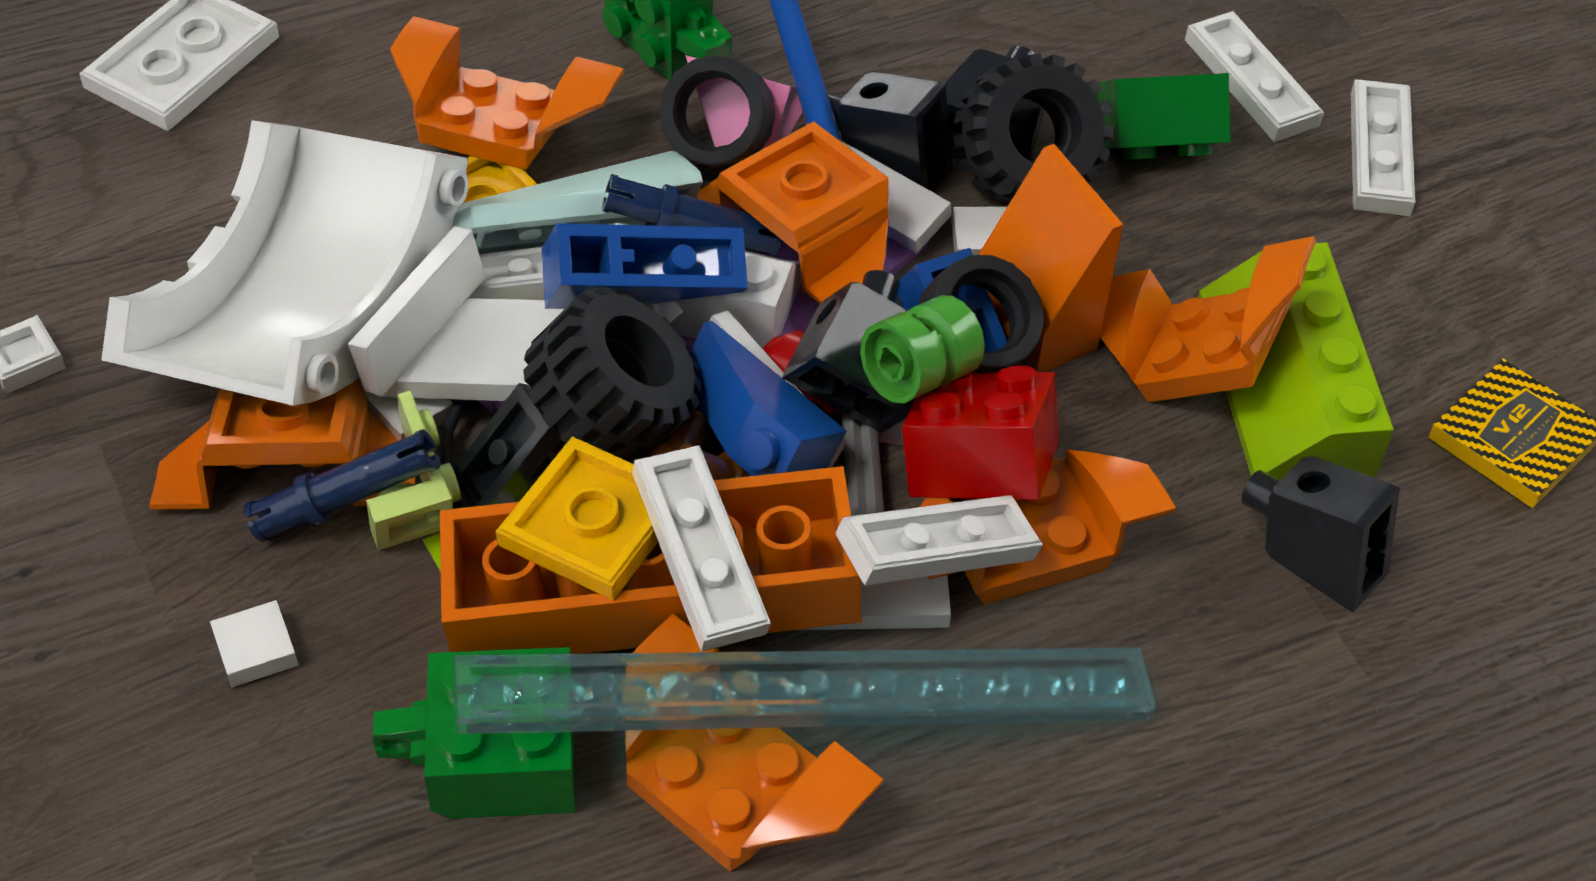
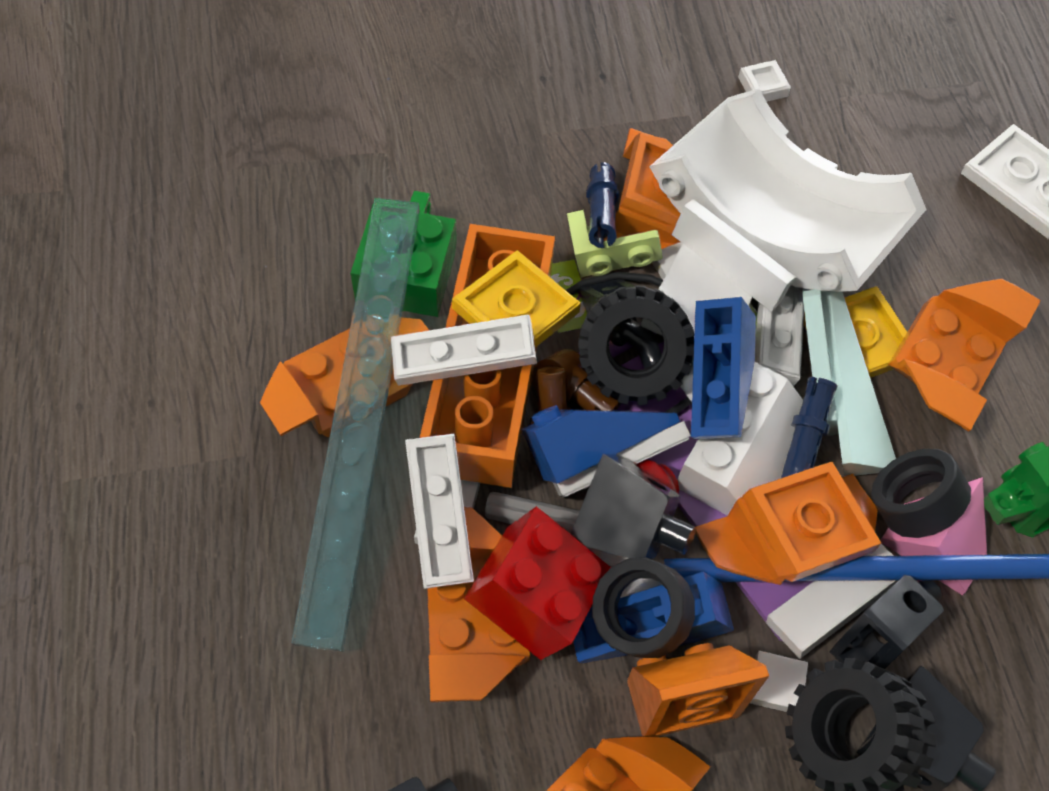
camera: 105 degrees right, 10 degrees up
(254, 643) = (516, 164): white tile -> none
(922, 348) = (605, 548): bright green wheel -> none

